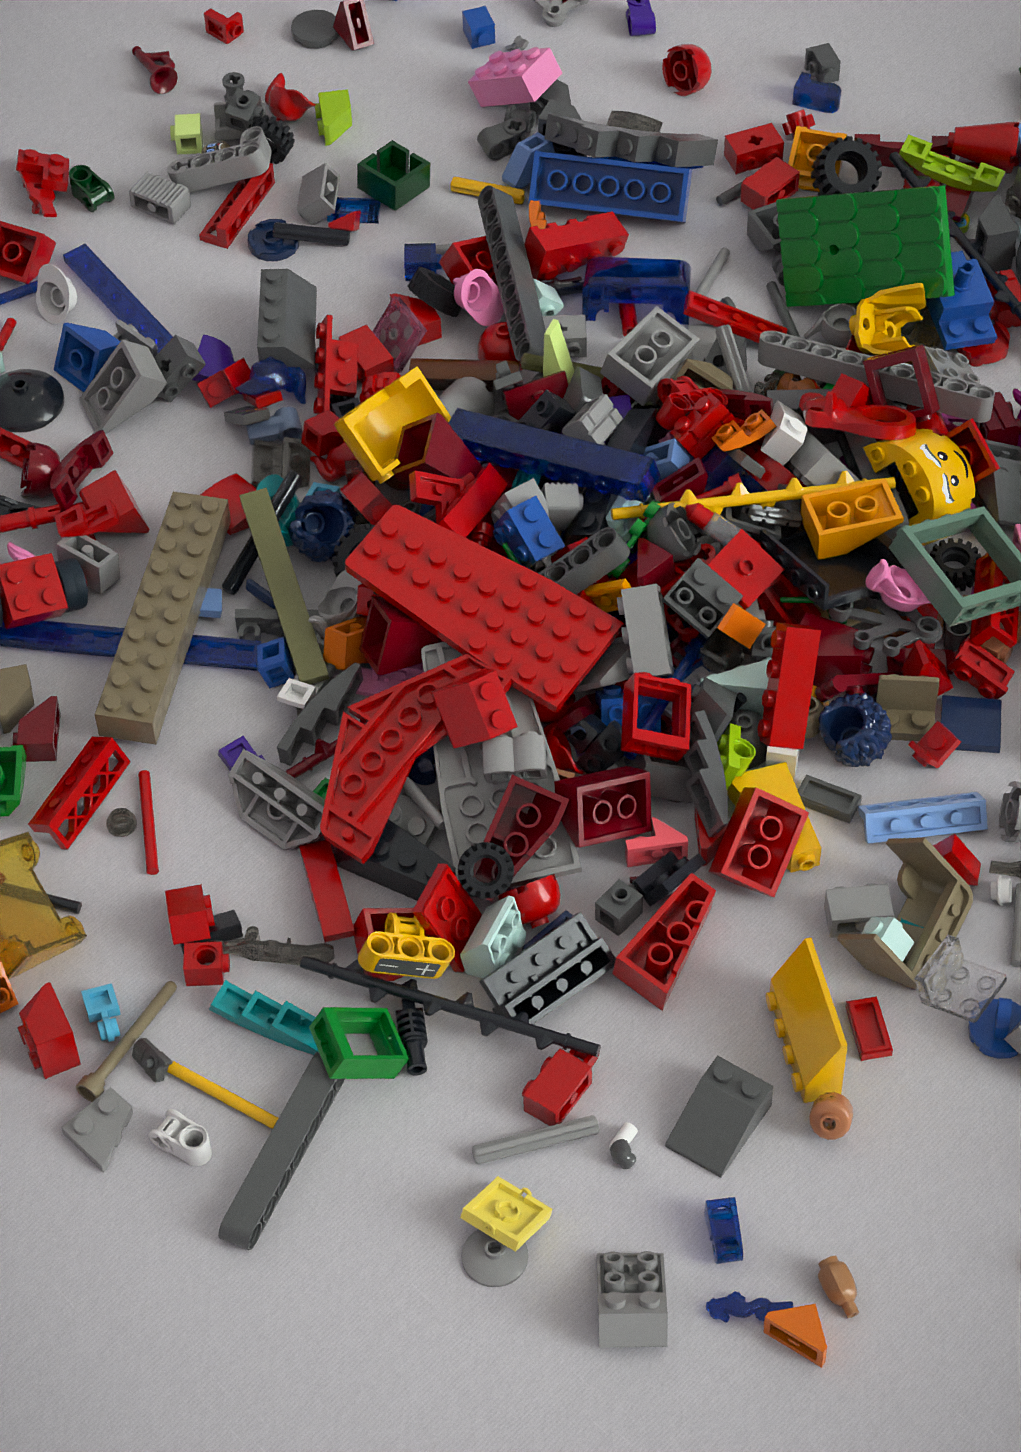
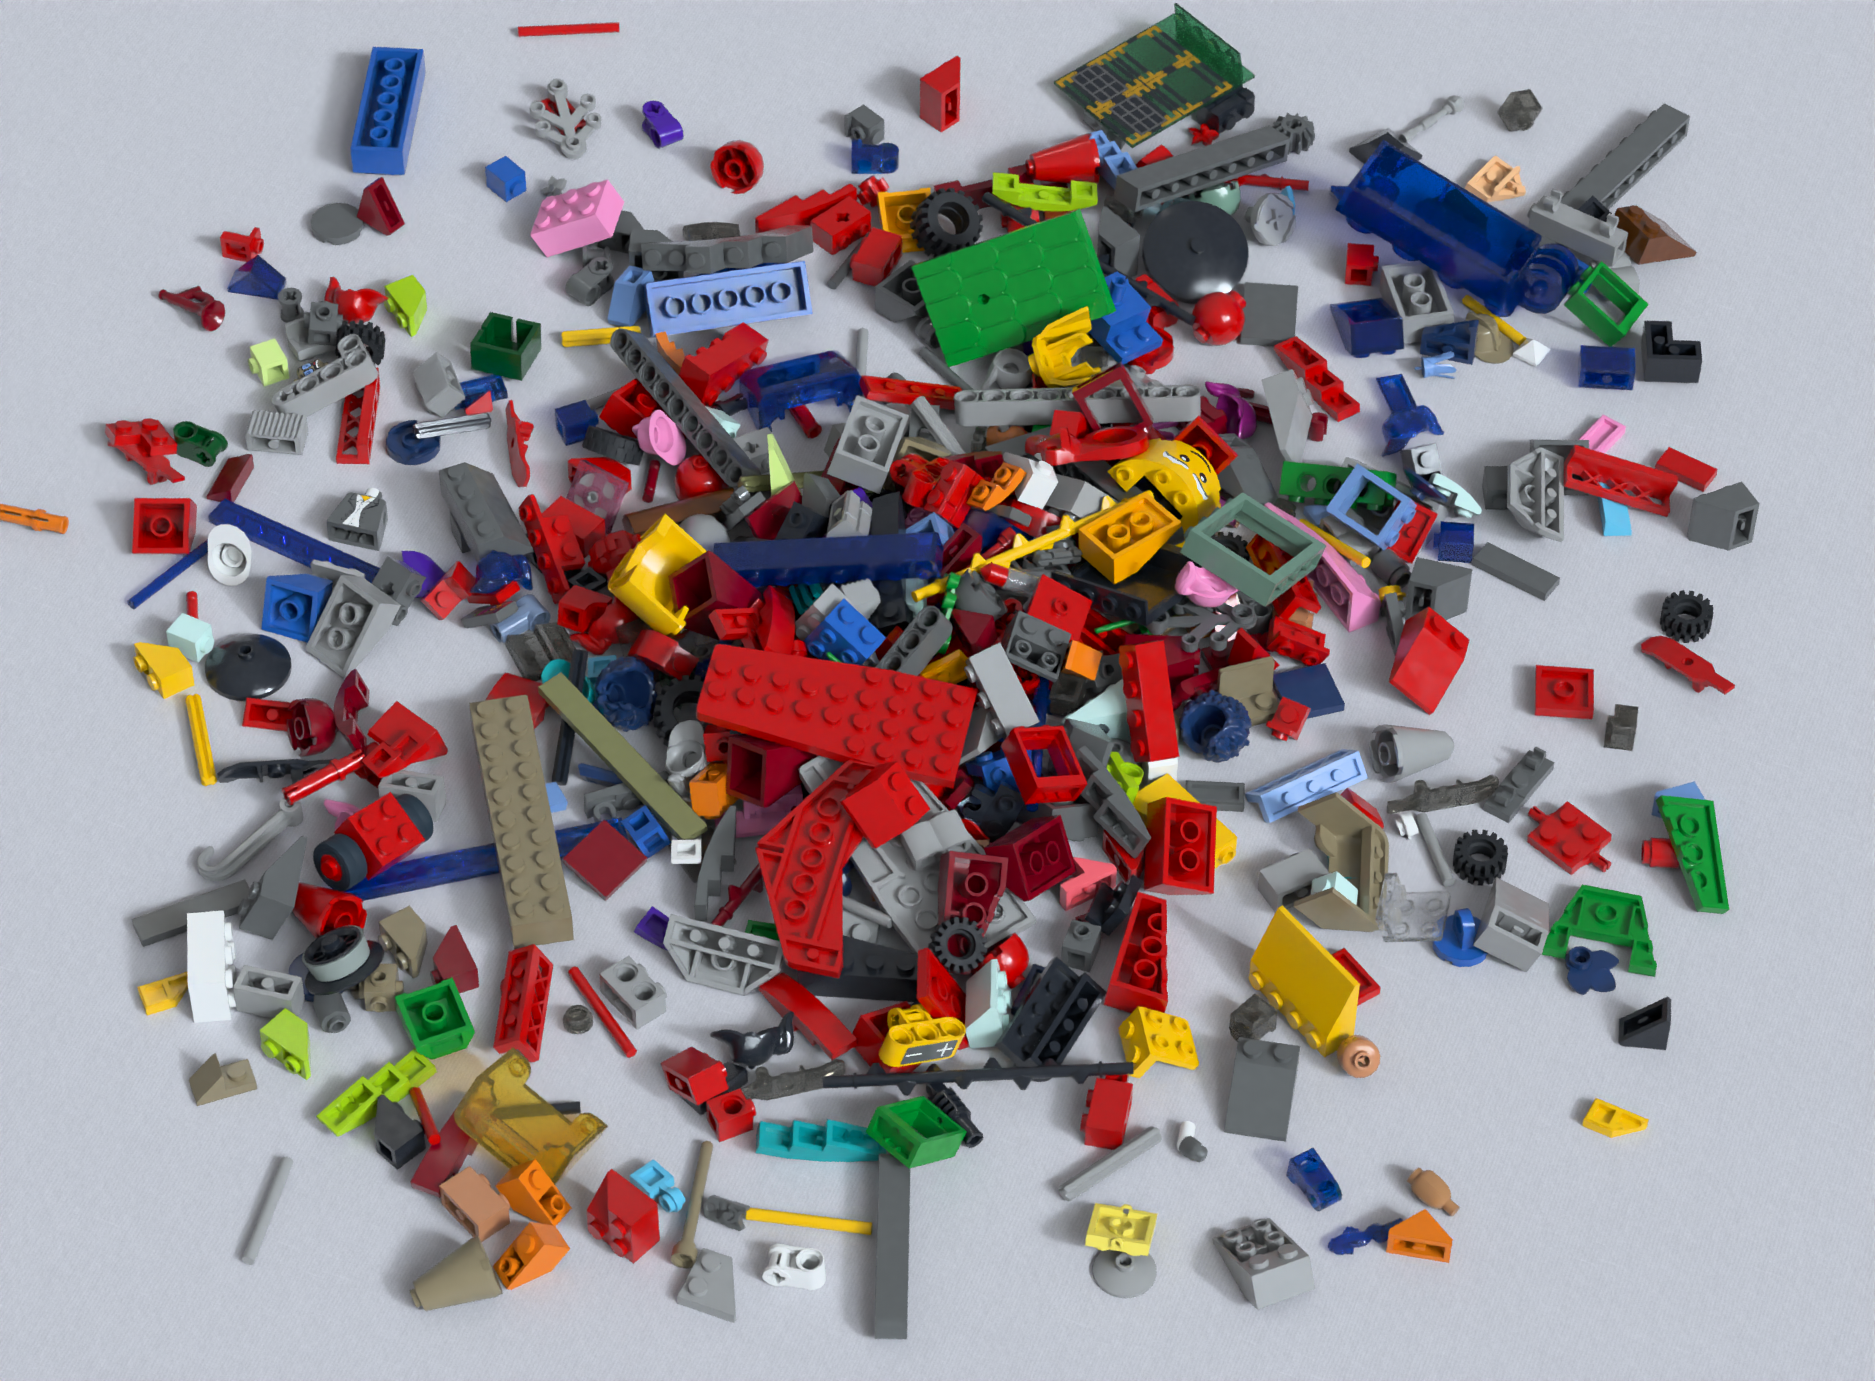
camera: 25 degrees left, 5 degrees down
(102, 228) = (231, 478): none -> dark red slope
(179, 813) = (633, 992): none -> light grey brick
(186, 296) = (359, 520): none -> dark grey torso
(220, 59) = (257, 279): none -> clear blue slope
(224, 677) = (604, 860): none -> dark red tile
(263, 906) = (757, 1048): none -> black hair
(367, 255) = (517, 433): none -> red piece
(460, 336) = (651, 481): none -> dark red wheel
(644, 1029) = (1155, 1037): none -> yellow bracket
(718, 124) = (801, 212): none -> red slope
(745, 1041) = (1253, 1019): none -> clear smoke brick
(906, 52) = (941, 95): none -> red slope

